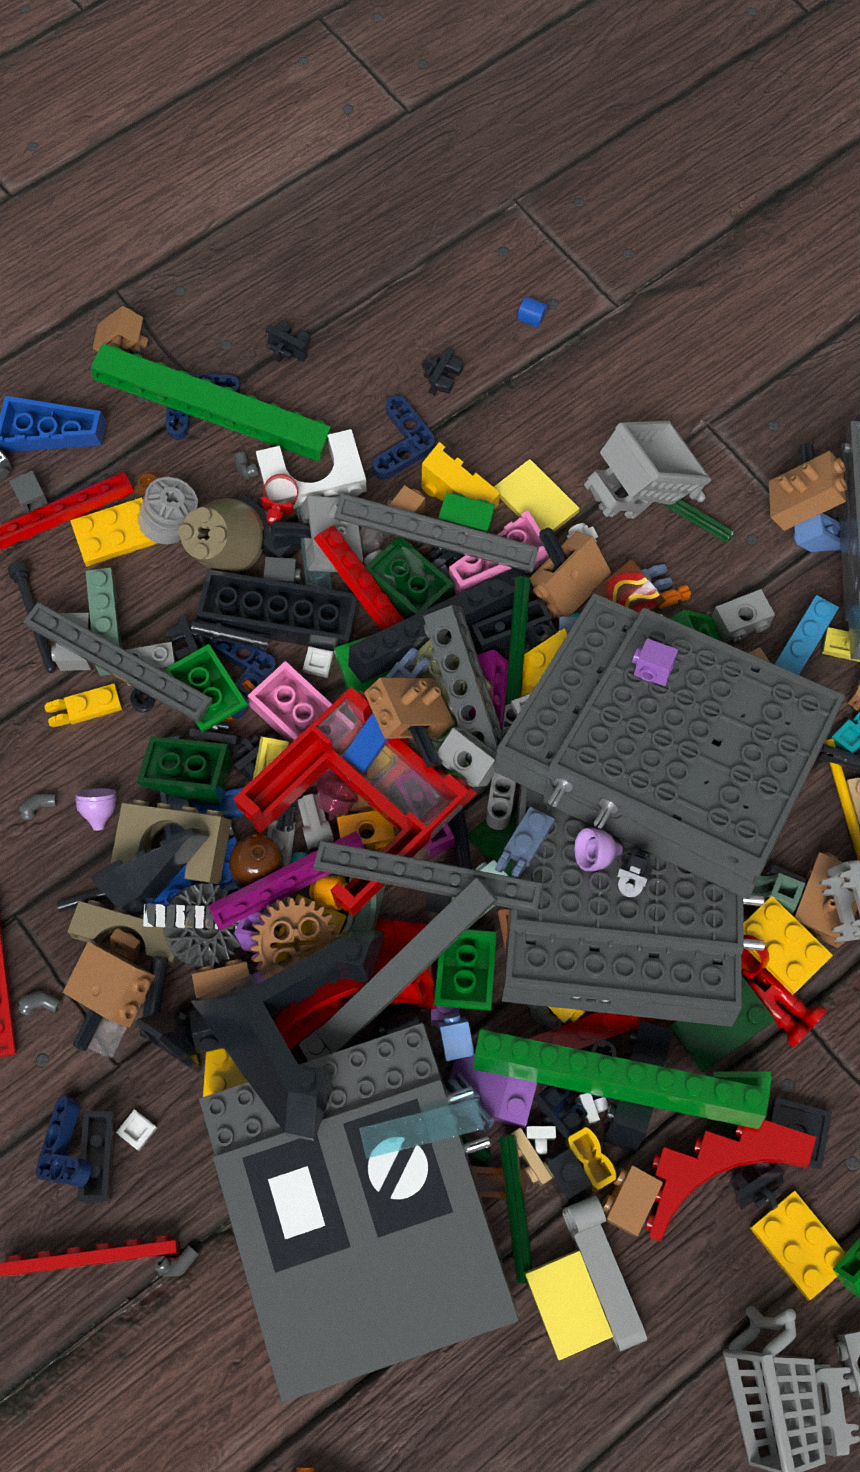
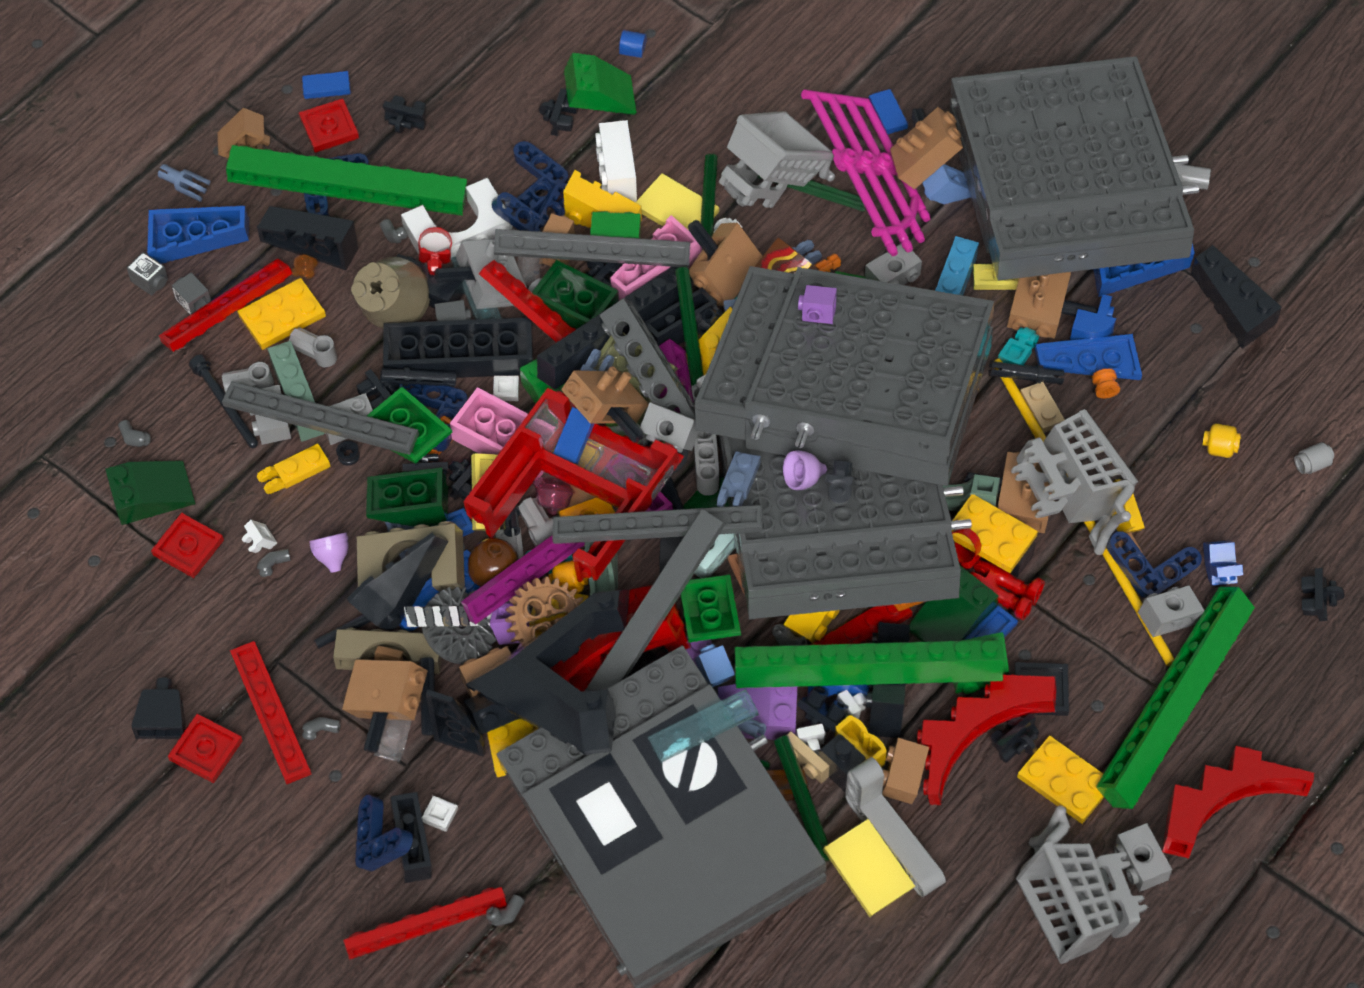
camera: 10 degrees left, 10 degrees down
(30, 773) = (260, 535): none -> white tile
(52, 369) = (183, 180): none -> sand blue arm
(60, 598) = (250, 376): none -> light grey piece
(135, 575) = (317, 347): none -> light grey piece
(159, 452) = (310, 234): none -> black wedge
(164, 509) = (330, 281): light grey wheel -> none
(209, 338) = (328, 125): none -> red plate
(218, 294) = (326, 85): none -> blue tile
(388, 484) = (534, 219): none -> dark blue beam
(485, 438) = (616, 159): none -> white brick
(486, 351) = (598, 85): none -> green slope
(571, 495) = (709, 191): none -> dark green axle
(744, 495) = (872, 164): none -> dark pink piece
(758, 1050) = (995, 622): none -> blue tile
(775, 438) = (888, 111): none -> blue tile

